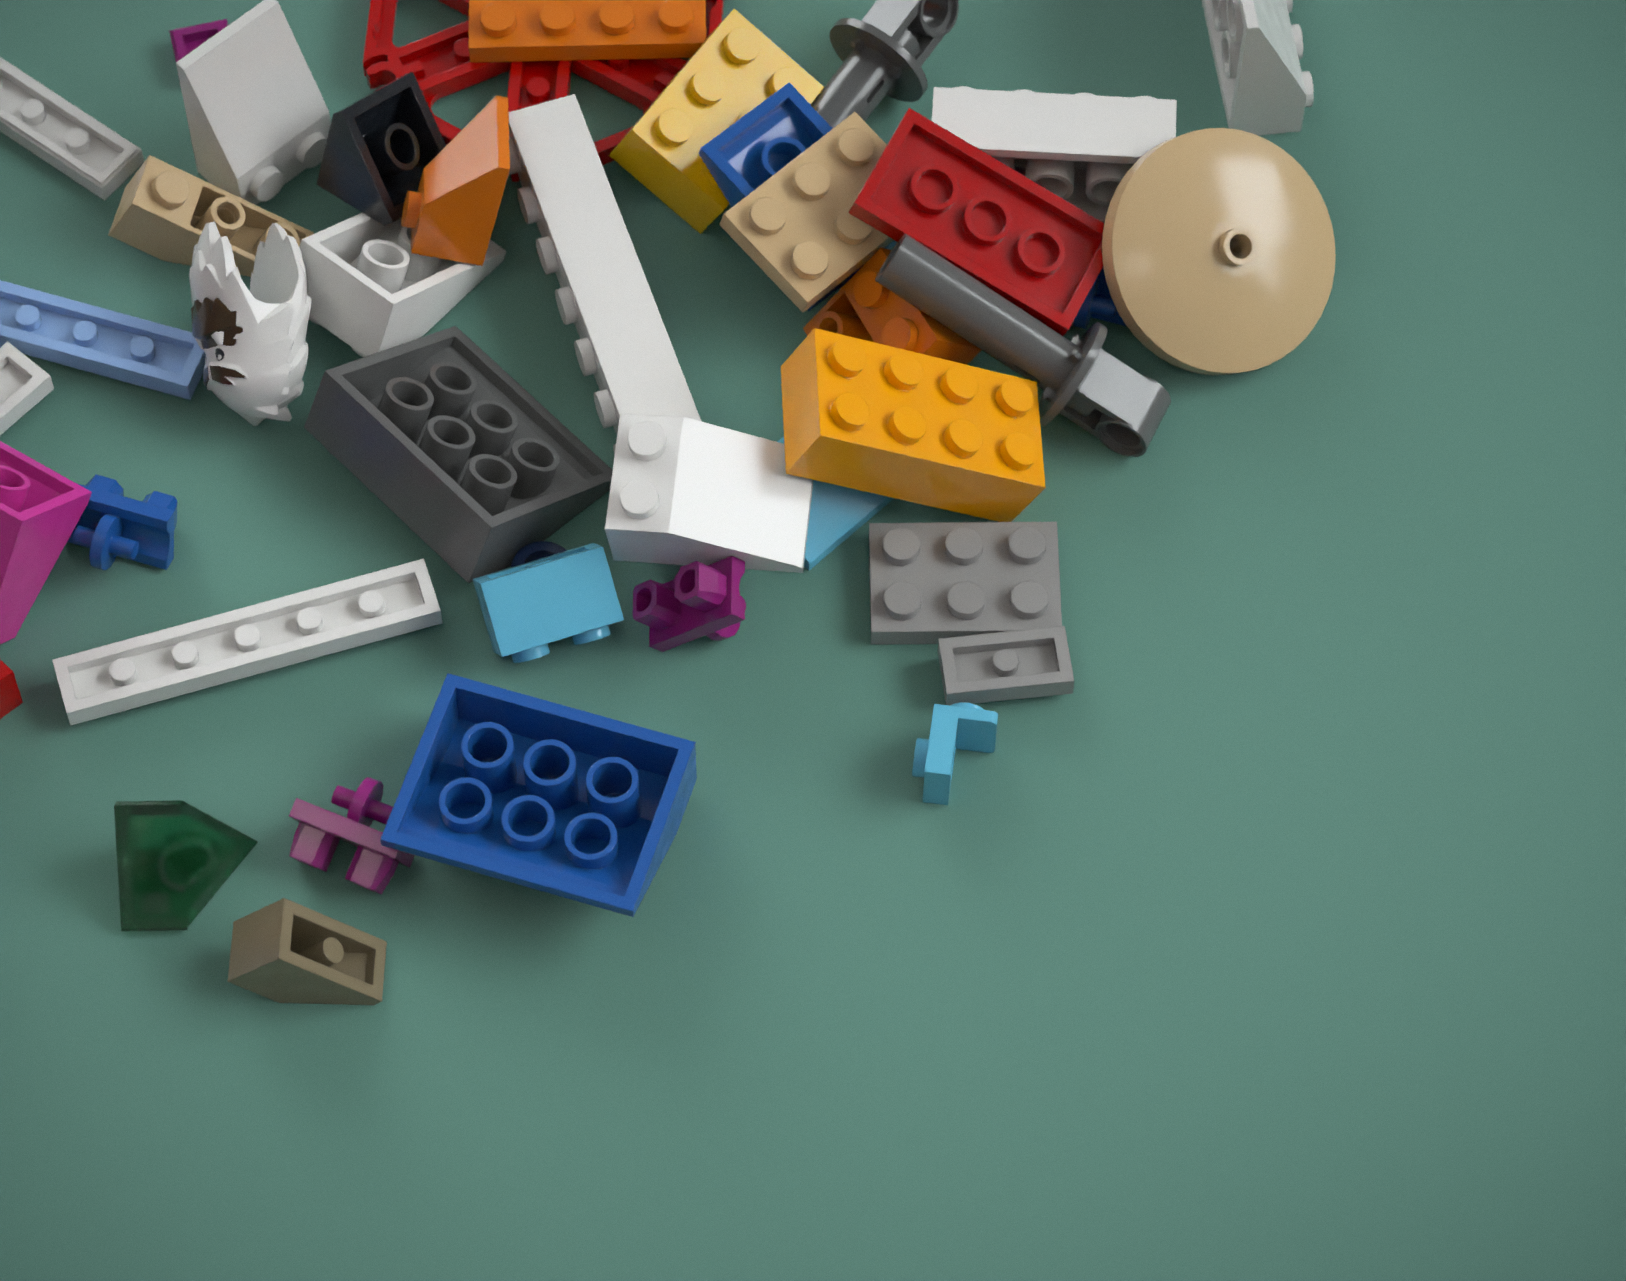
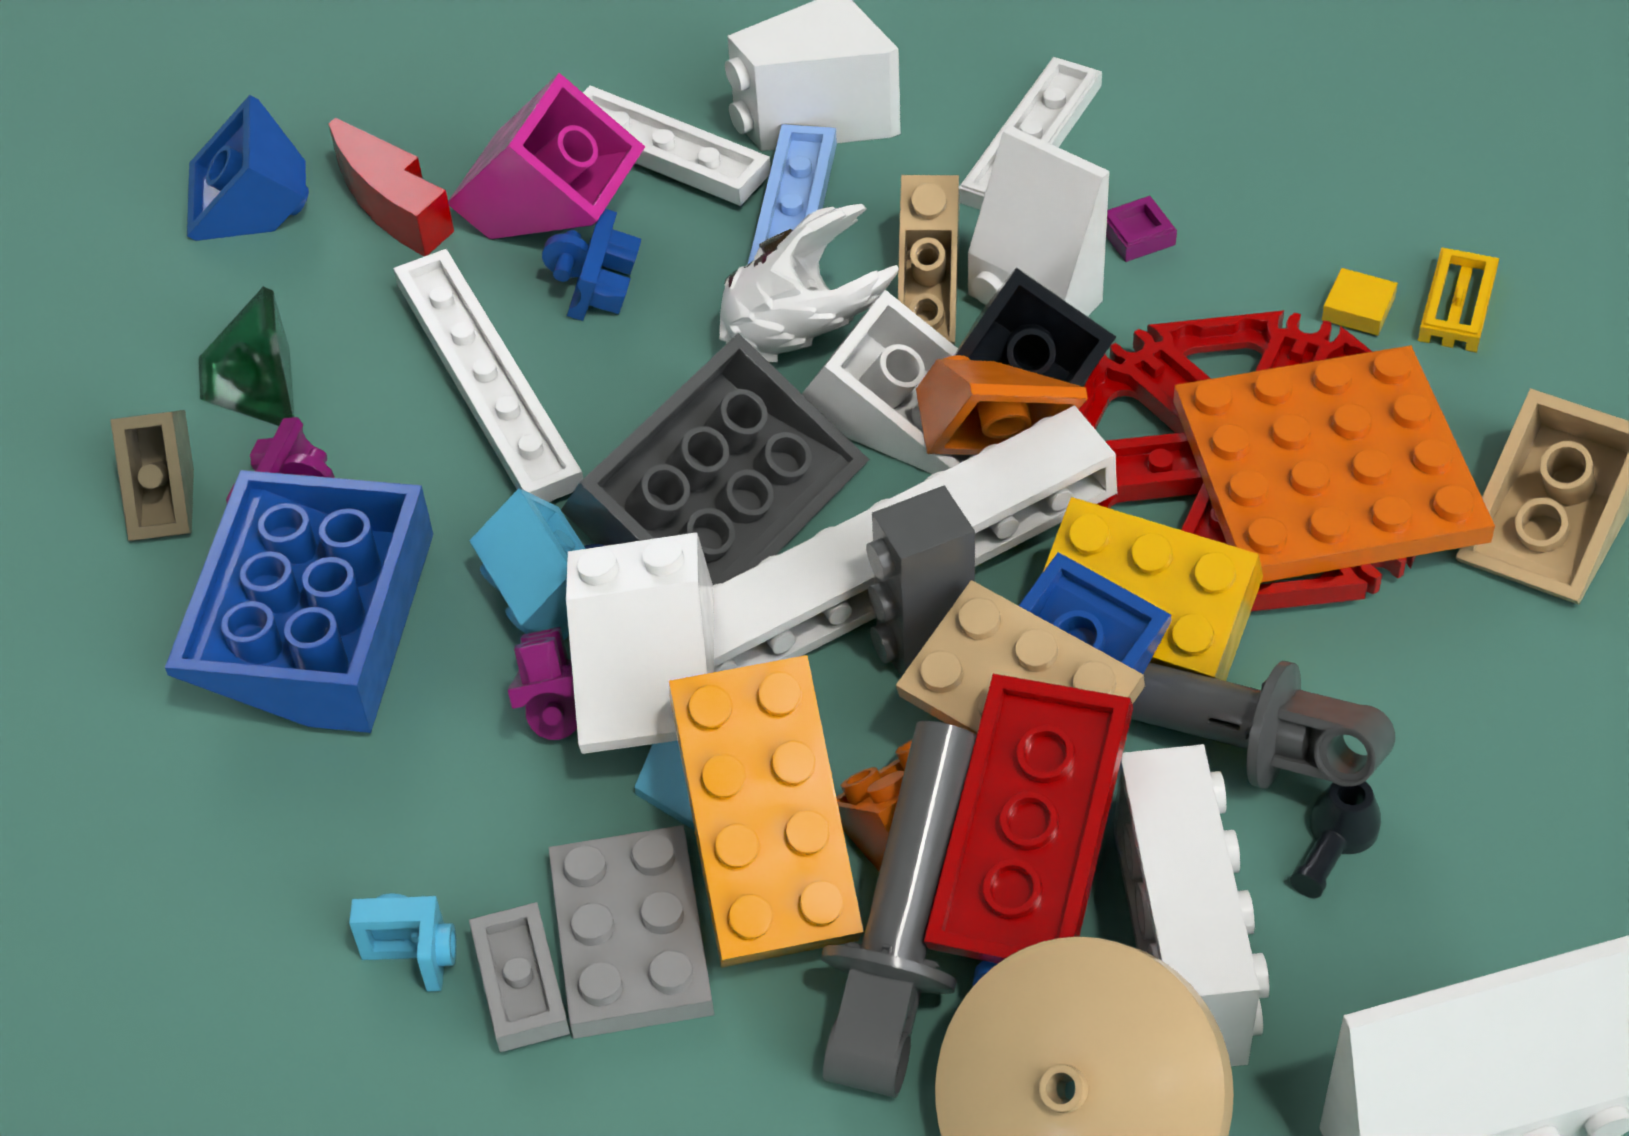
camera: 85 degrees right, 10 degrees down
(690, 266) = (920, 569): none -> dark grey brick
(962, 56) = (1338, 831): none -> black bar

